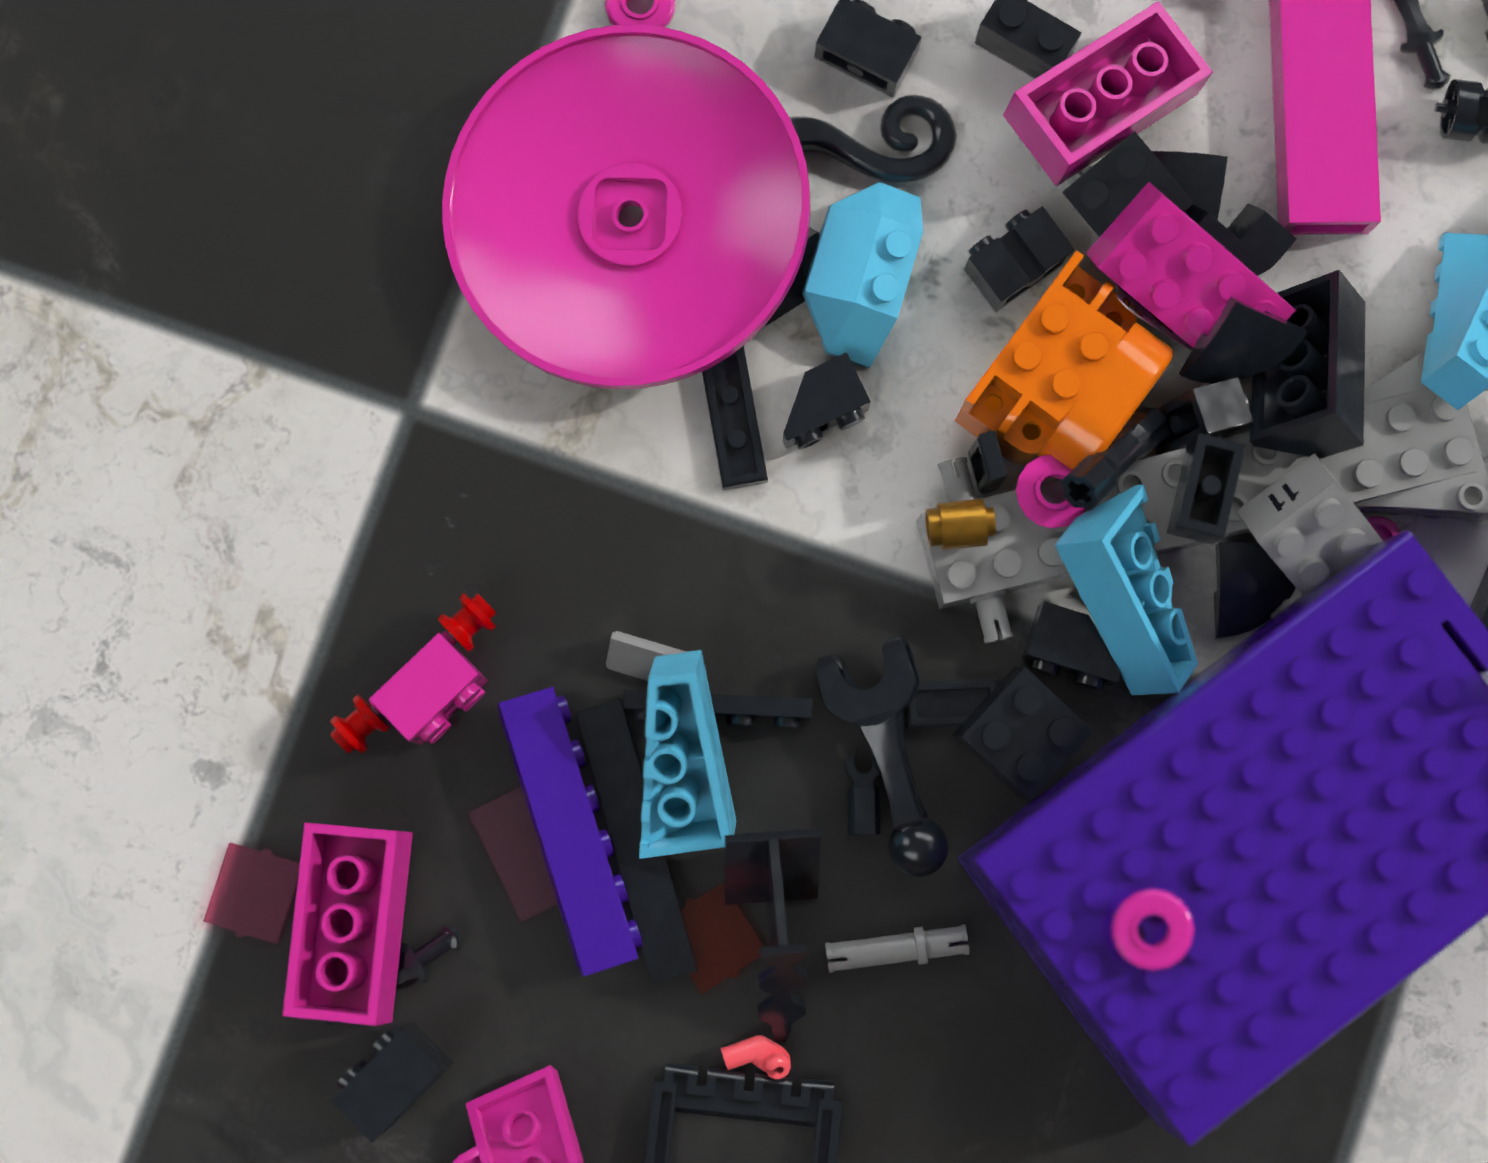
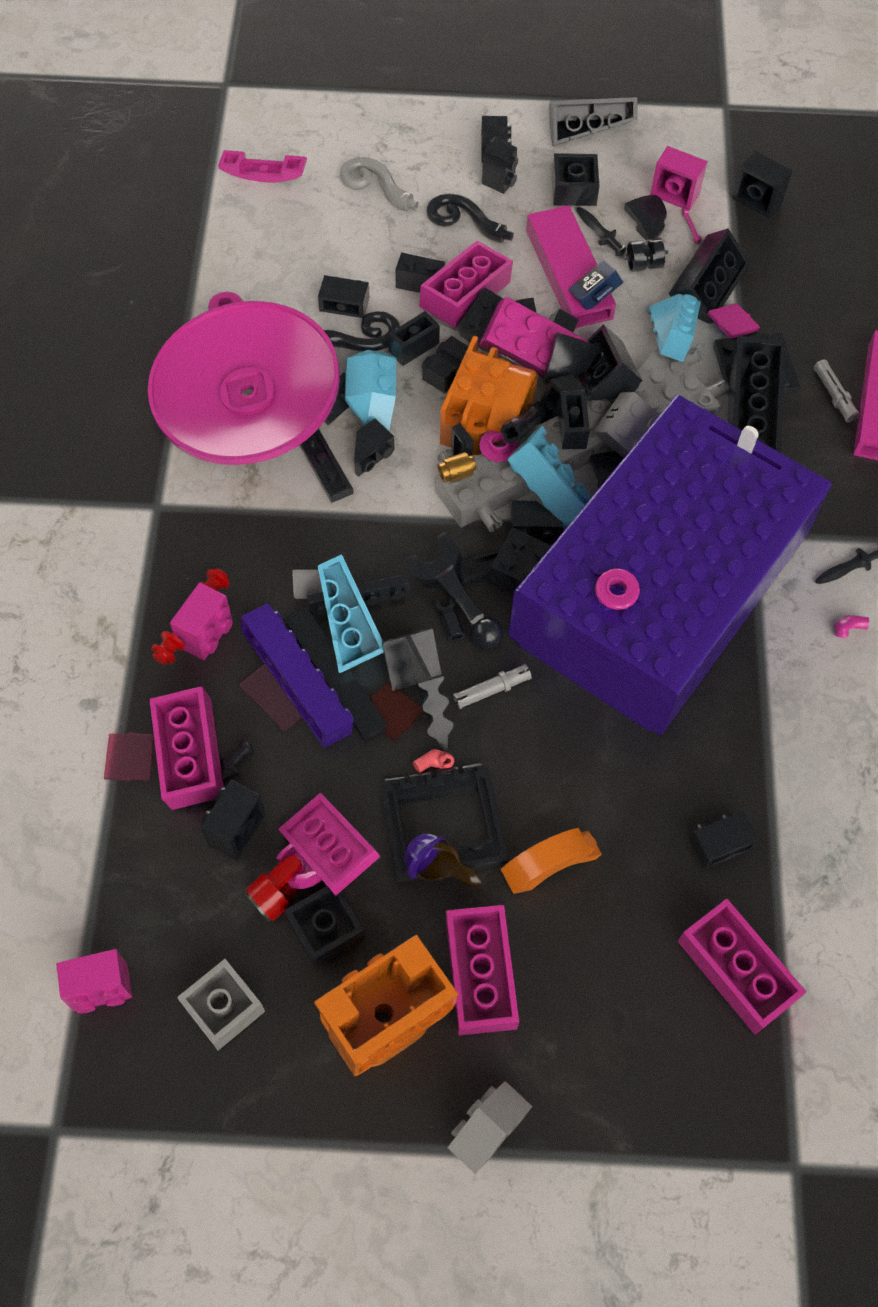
camera: 15 degrees left, 20 degrees down
(971, 187) = (414, 338): none -> black brick
(1354, 177) = (596, 285): none -> dark blue piece

